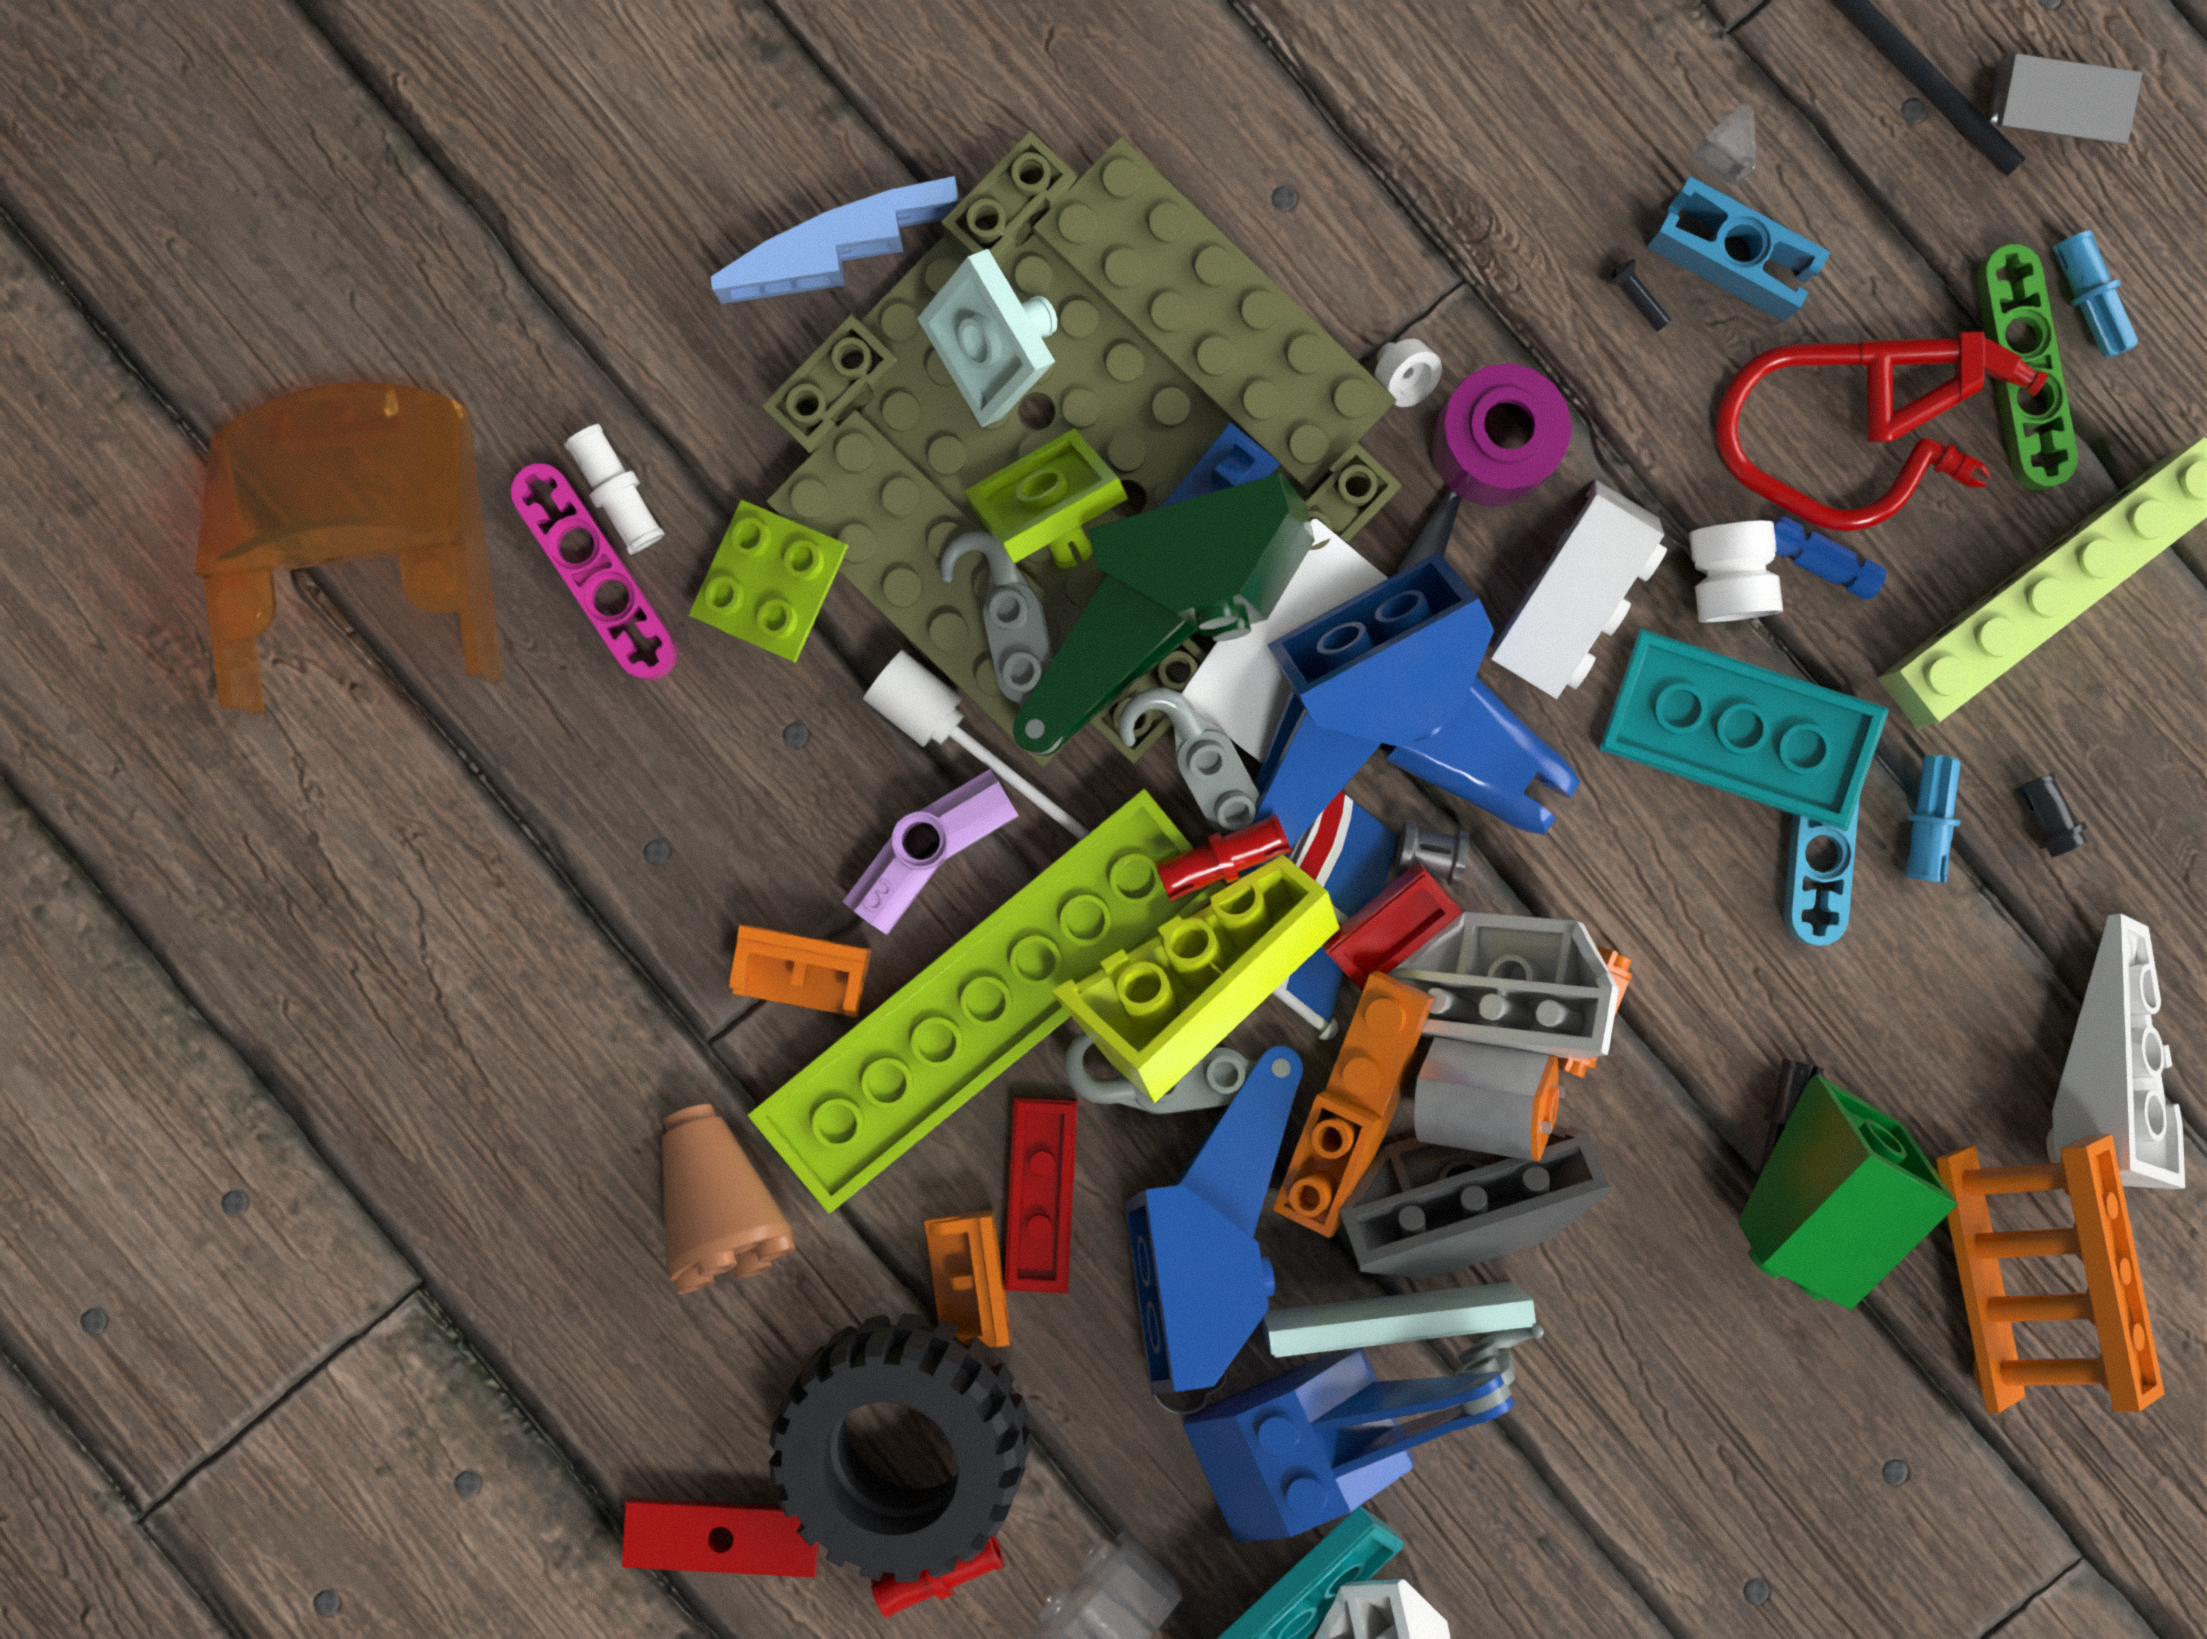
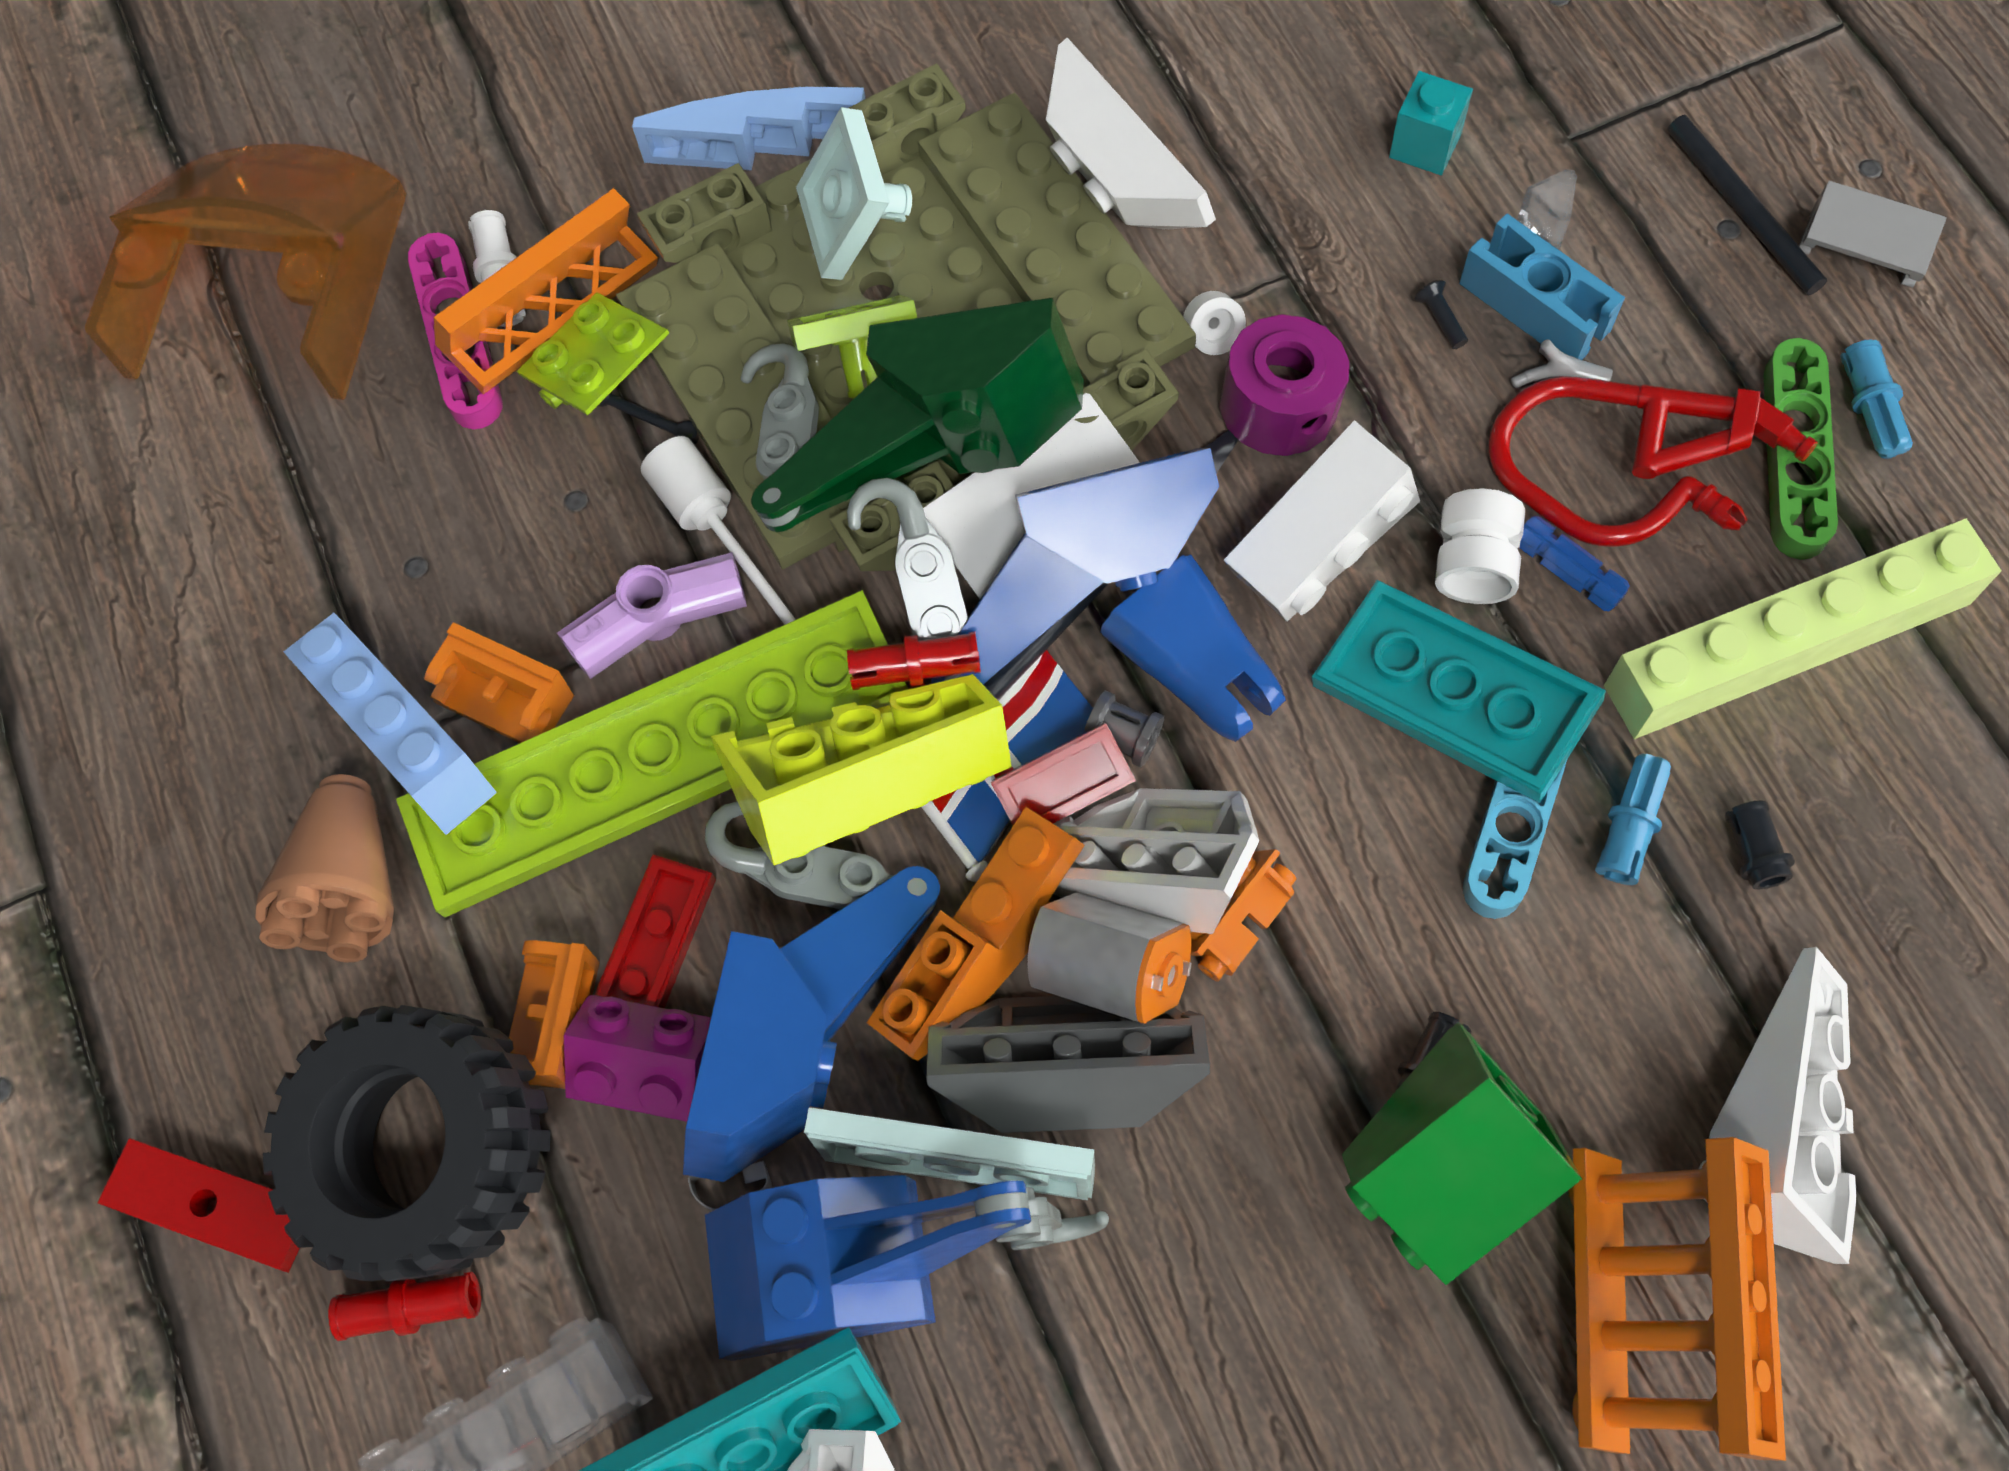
camera: 25 degrees right, 20 degrees down
(670, 506) = (529, 277): none -> orange fence
(717, 1047) = (391, 723): none -> light blue brick
(883, 630) = (682, 429): none -> black hinge
(1071, 1297) = (634, 1056): none -> magenta bracket
(1260, 206) = (1118, 152): none -> white wedge
(1581, 64) = (1430, 122): none -> teal brick
(1775, 332) = (1560, 365): none -> light grey bar

